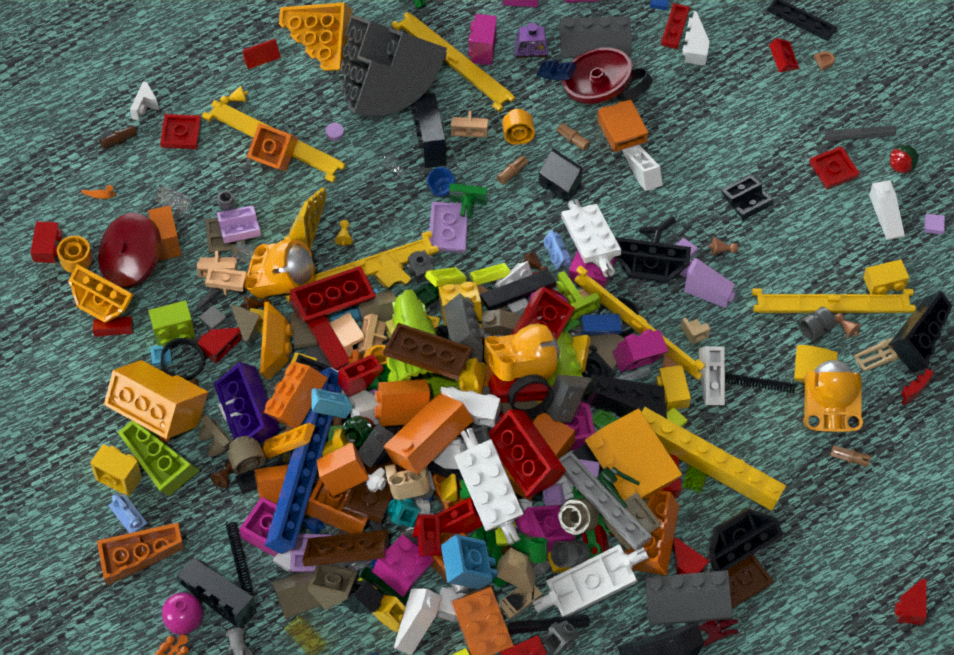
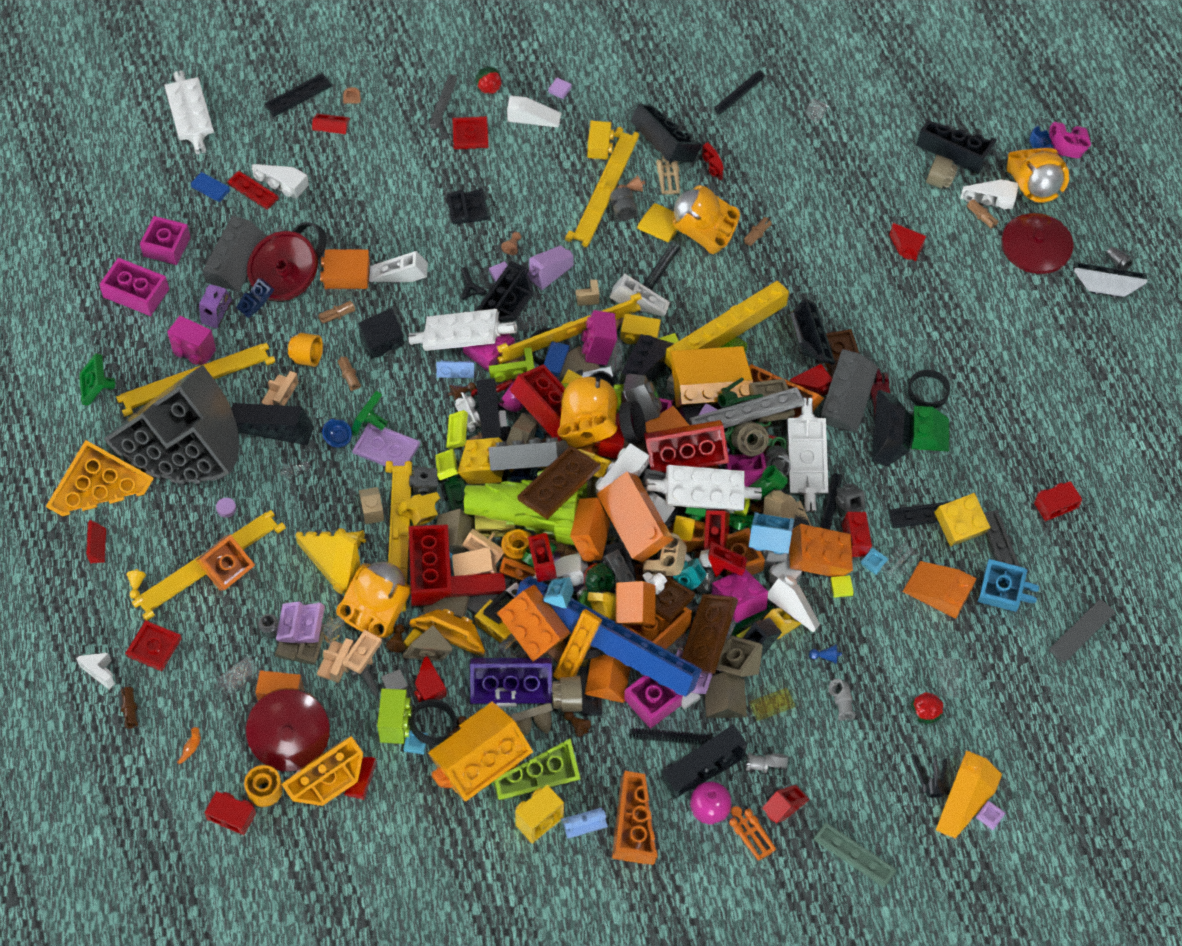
camera: 70 degrees left, 0 degrees up
(381, 235) = (371, 505): none -> tan slope

